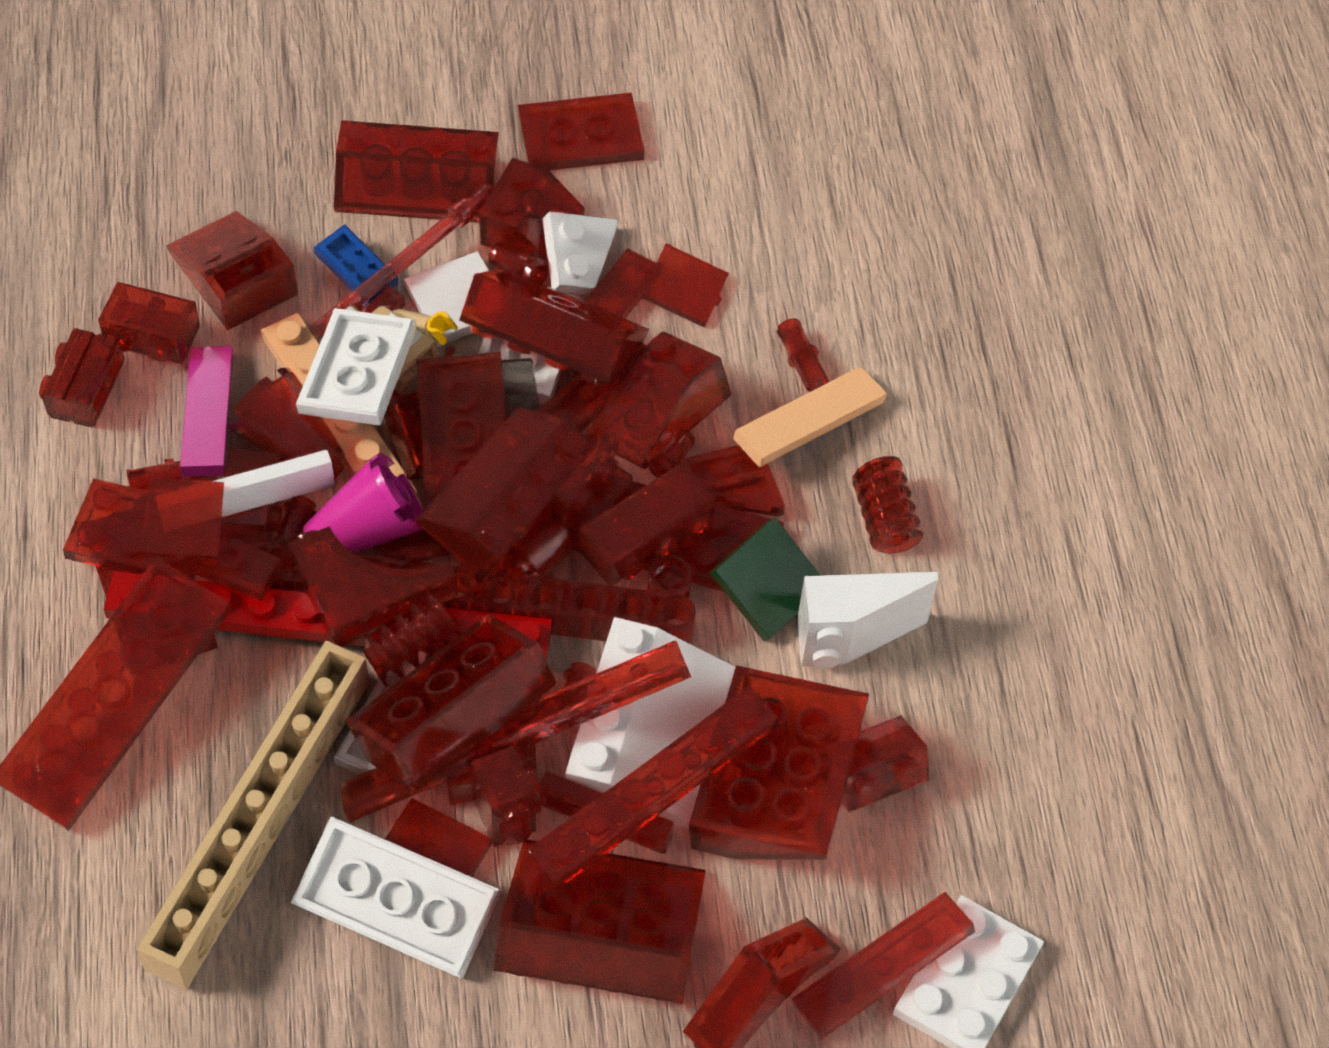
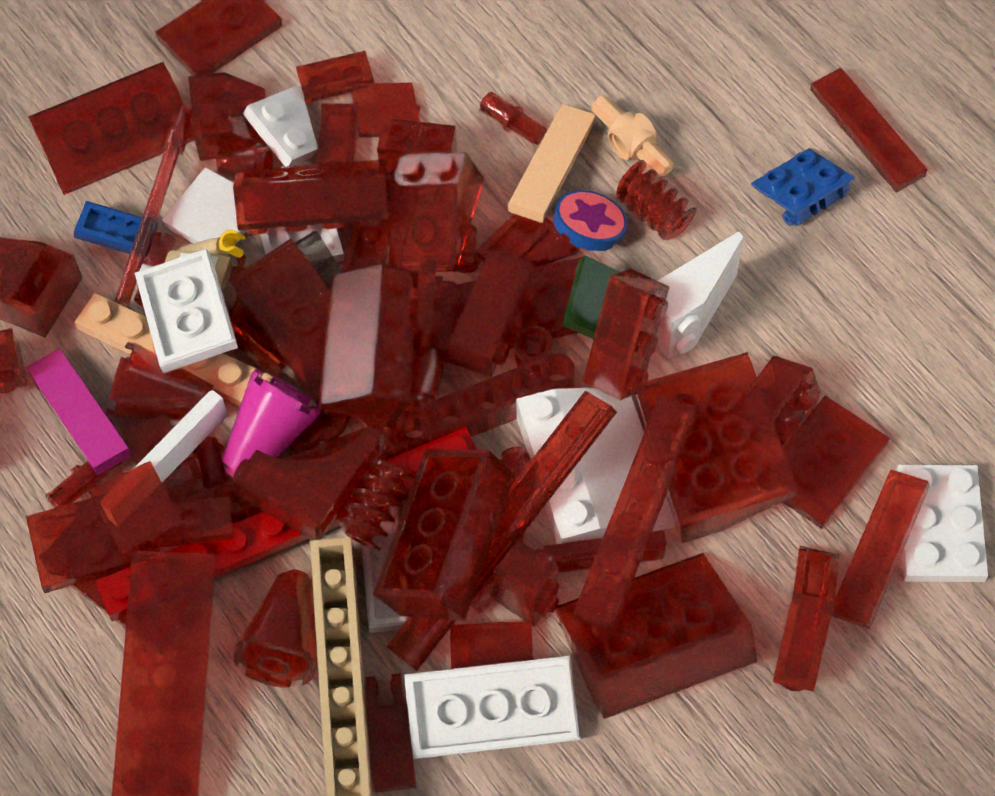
camera: 25 degrees left, 5 degrees up
(241, 713) = (281, 634): none -> clear red cone
(279, 874) = (389, 739): none -> clear red hinge
(655, 227) = (333, 76): none -> clear red plate
(688, 322) = (413, 137): none -> clear red brick
(760, 609) = (626, 333): none -> clear red brick
(810, 490) = (590, 220): none -> tile
(892, 850) = (829, 459): none -> clear red tile
(909, 433) = (632, 136): none -> light nougat axle
(1053, 566) = (804, 185): none -> blue hinge
(1160, 552) = (868, 130): none -> clear red tile

